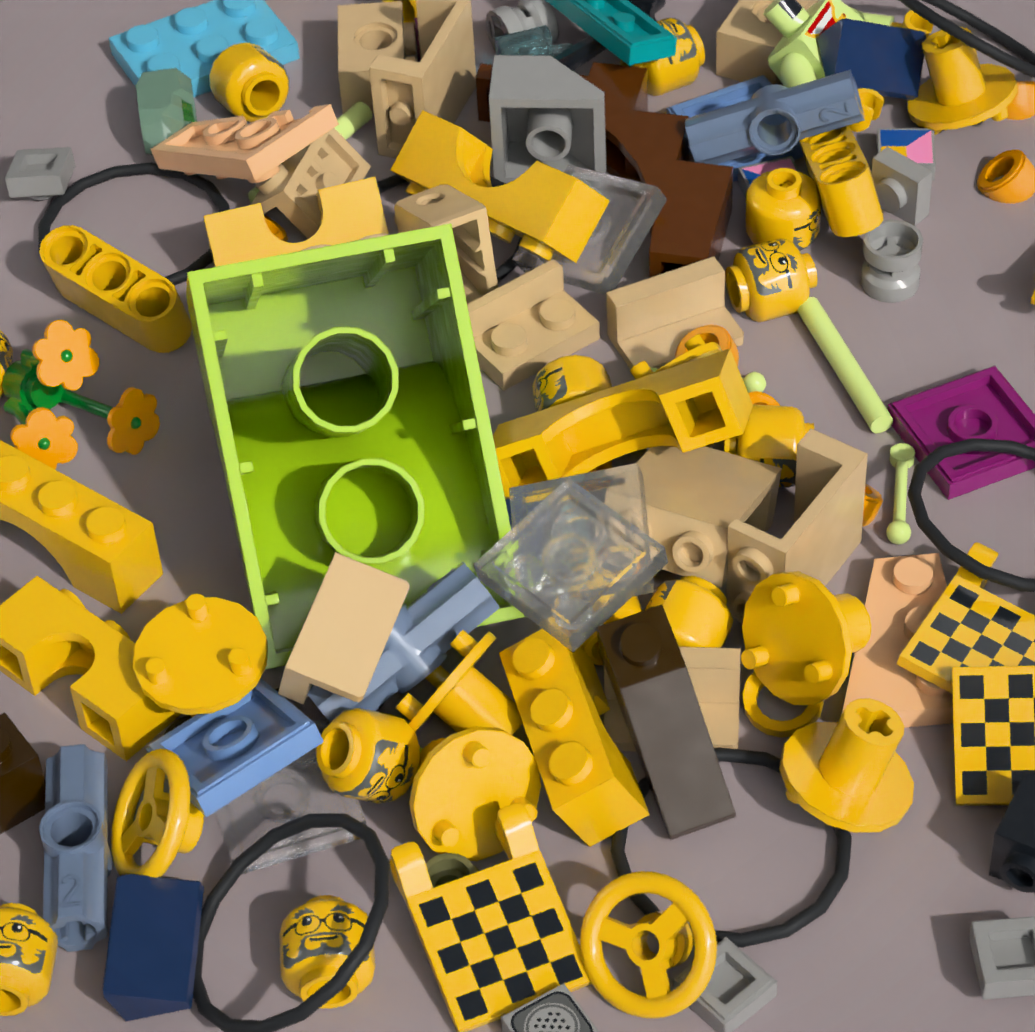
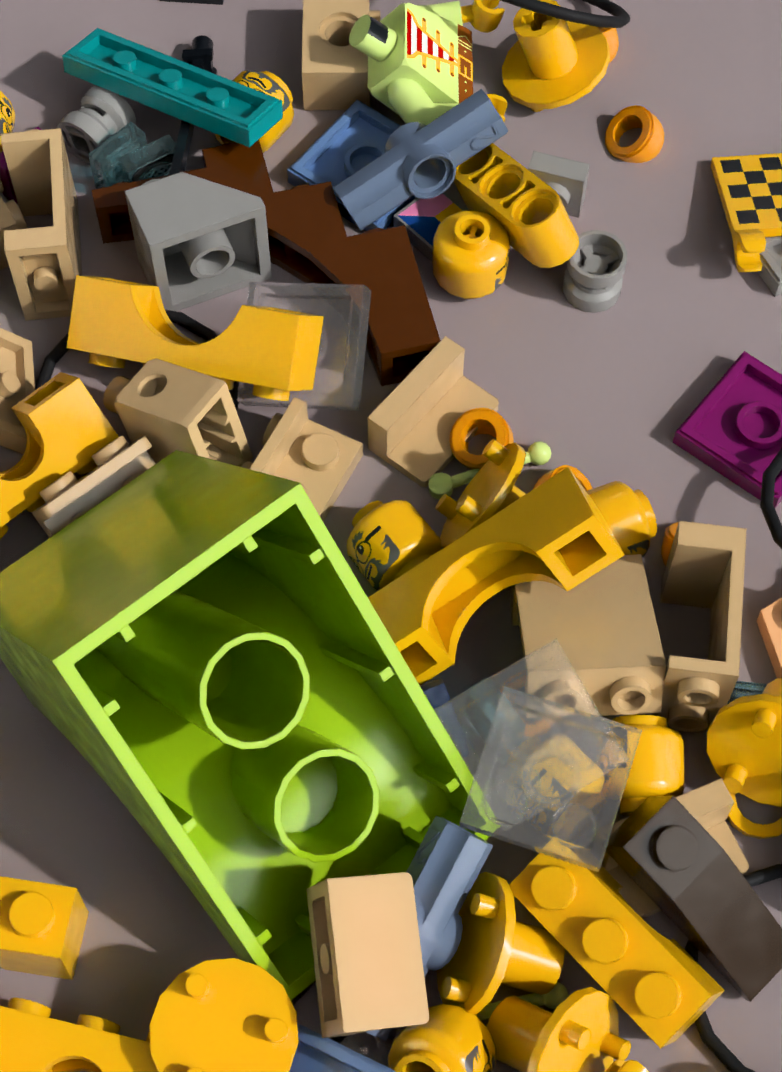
camera: 30 degrees left, 15 degrees up
(770, 279) = (497, 333): yellow head -> none
(845, 366) = (608, 399): yellowish green bar -> none
(877, 54) = (470, 58): dark blue slope -> none
(902, 458) = (712, 481): yellowish green hinge -> none
(913, 143) = (532, 133): tile -> none

